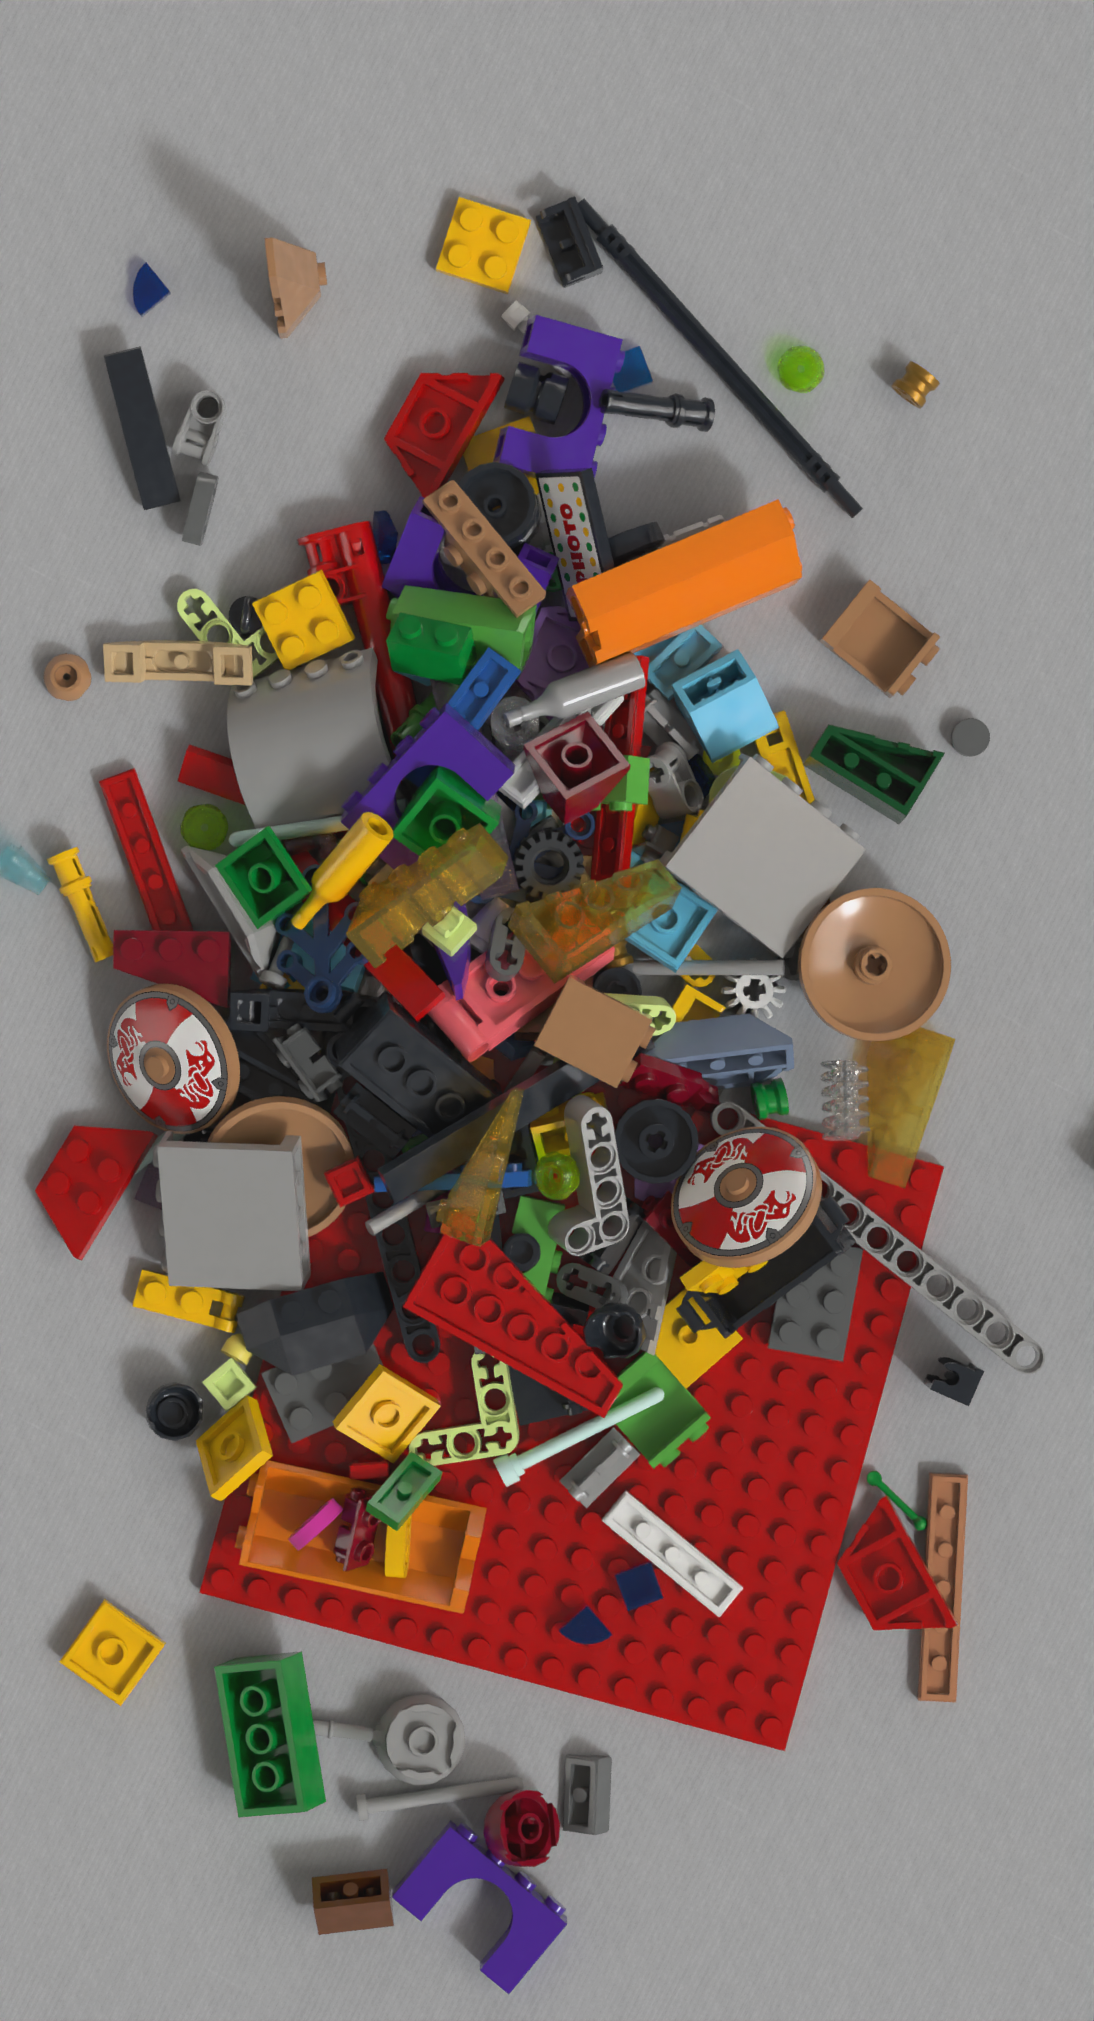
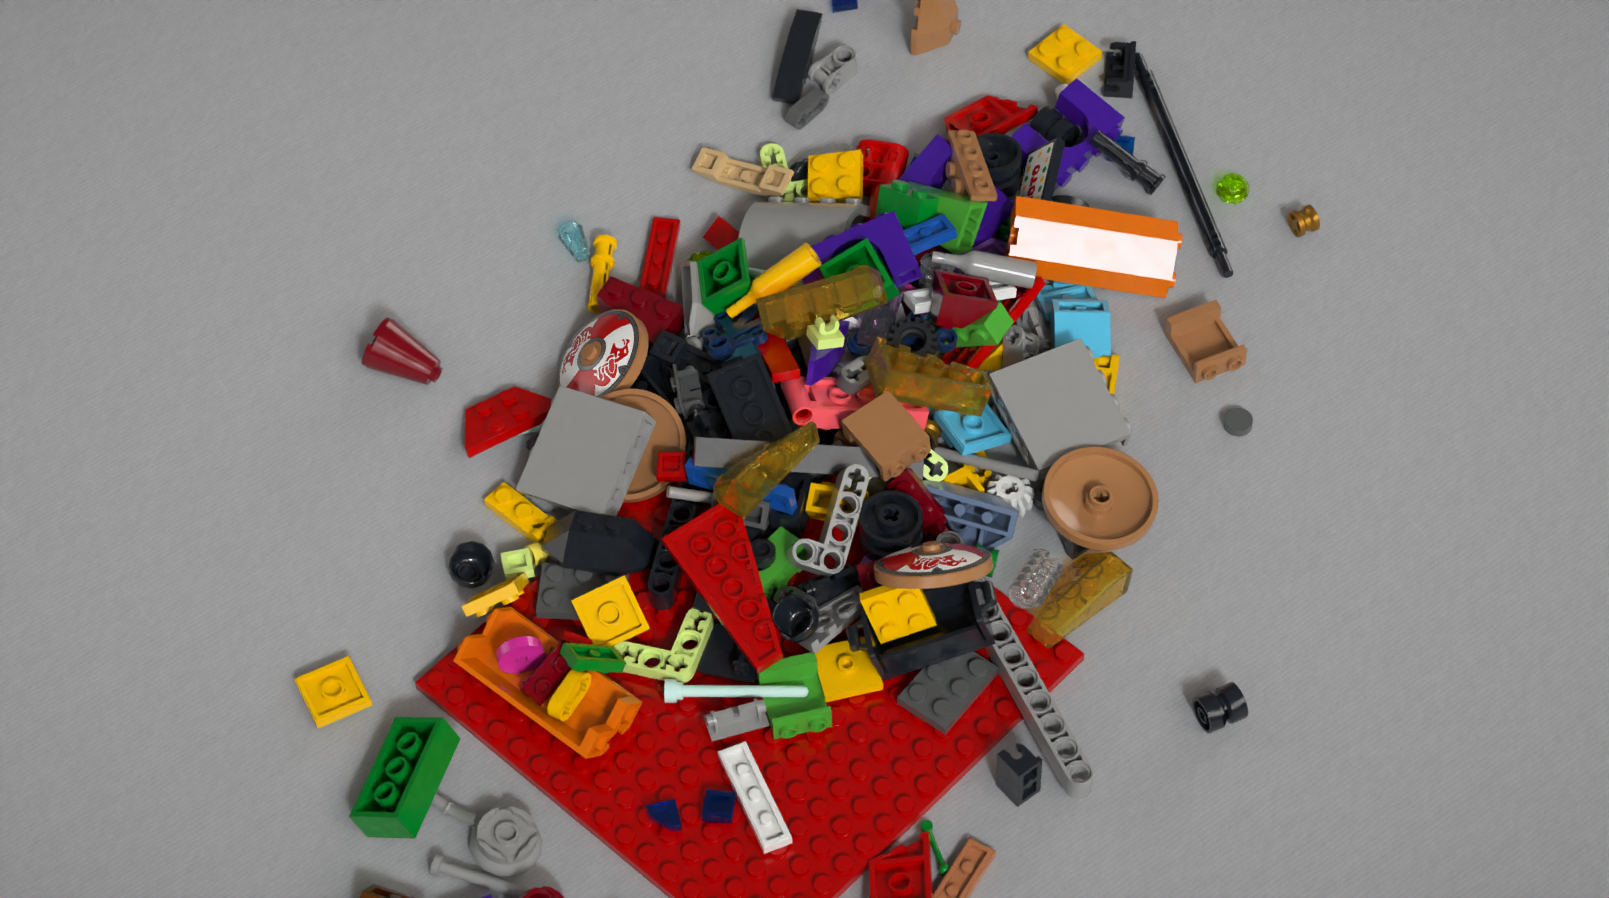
camera: 30 degrees right, 35 degrees down
(78, 682) = (669, 160): medium nougat plate -> none
(567, 1174) = (811, 510): clear neon green plate -> none
(873, 769) = (1161, 405): dark green wedge -> none

